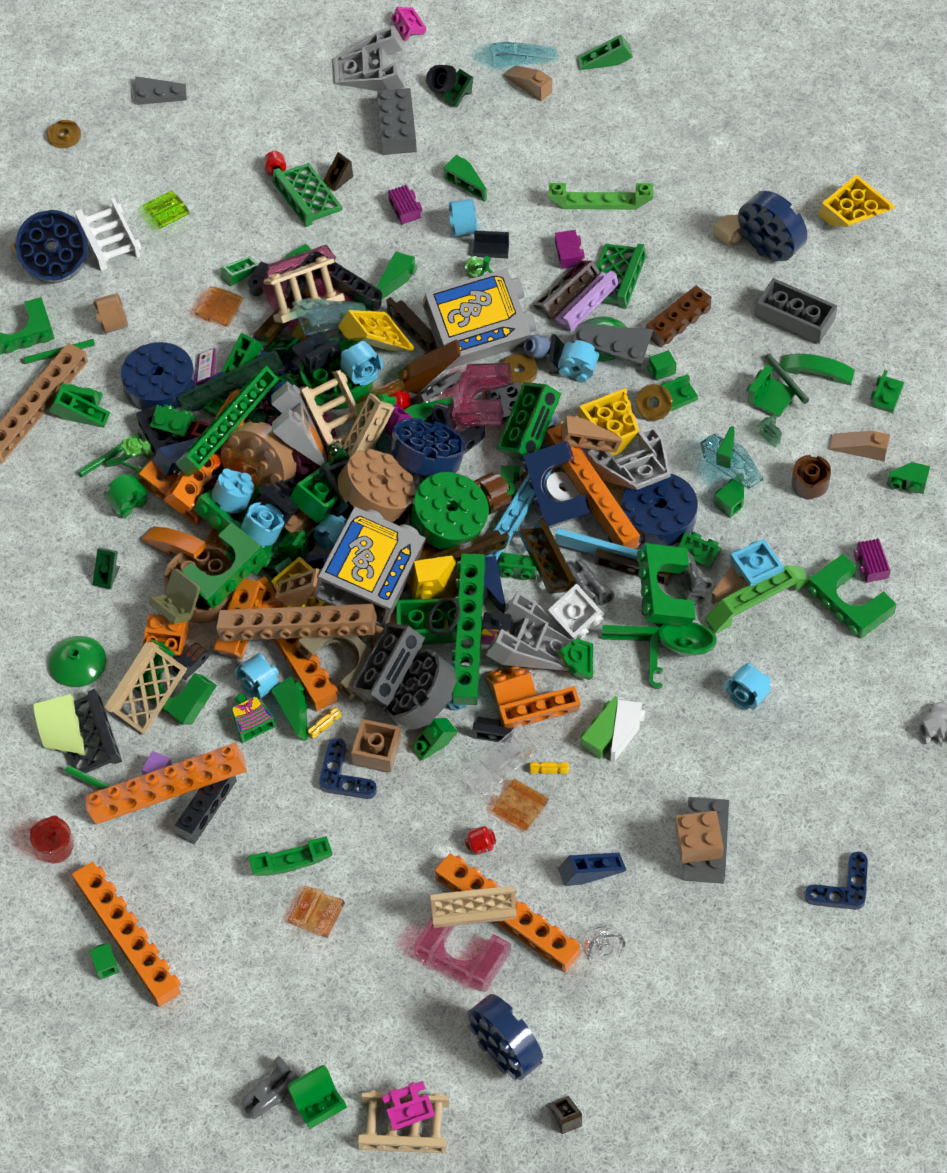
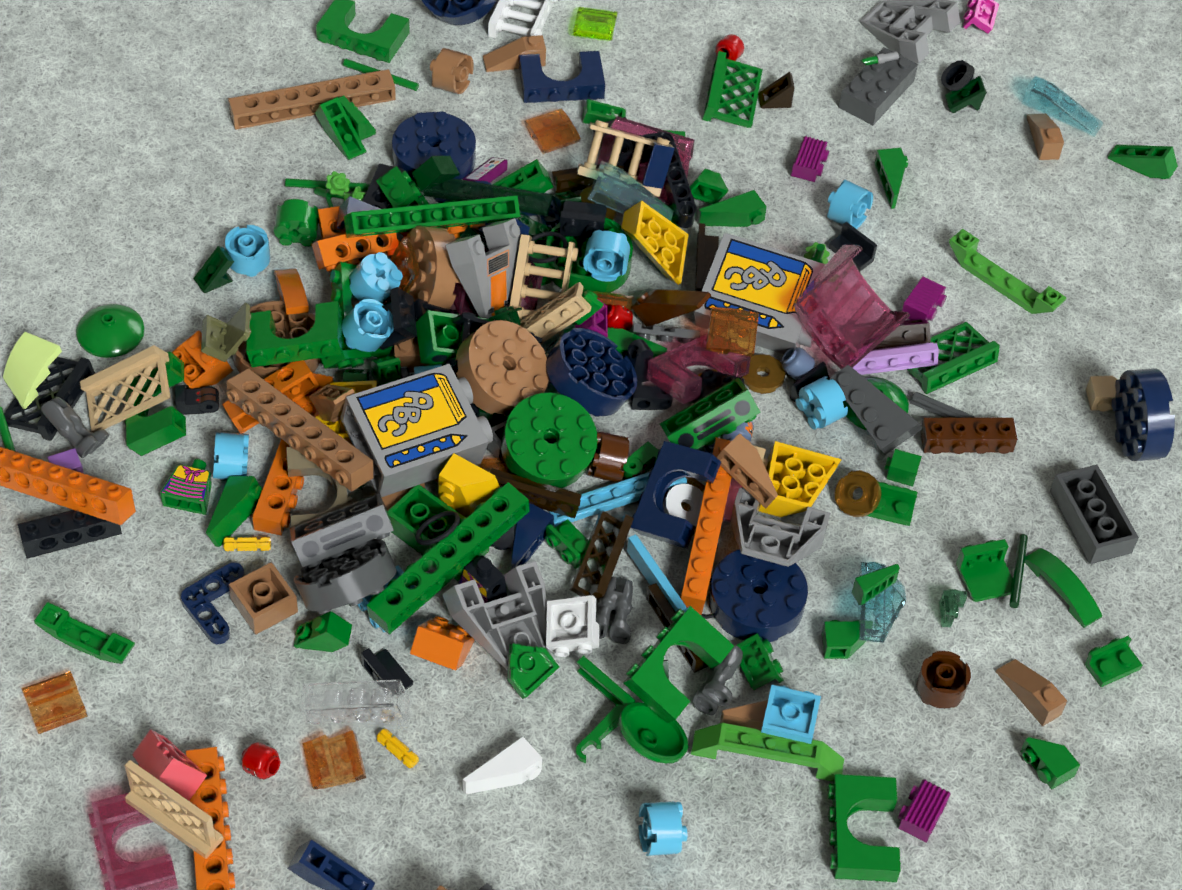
camera: 35 degrees right, 5 degrees down
(113, 535) = (248, 249): none -> medium azure brick
(134, 740) = (71, 427): none -> dark grey piece
(140, 268) = (508, 56): none -> medium nougat slope
(179, 282) = (541, 88): none -> dark blue arch
(183, 391) = (434, 172): none -> dark green slope
(310, 374) = (543, 234): none -> black piece
(331, 279) = (658, 165): none -> dark blue slope
(364, 268) = (709, 187): none -> green slope
(386, 101) = (880, 58): none -> light grey piece
(422, 885) = (168, 764): none -> coral wedge
(487, 355) = (732, 331): none -> clear orange slope
(539, 708) = (442, 684): orange brick -> none
(546, 293) = (844, 311): none -> clear pink windscreen
(600, 735) = (473, 753): bright green slope -> none
(643, 312) = (937, 407): none -> dark grey axle

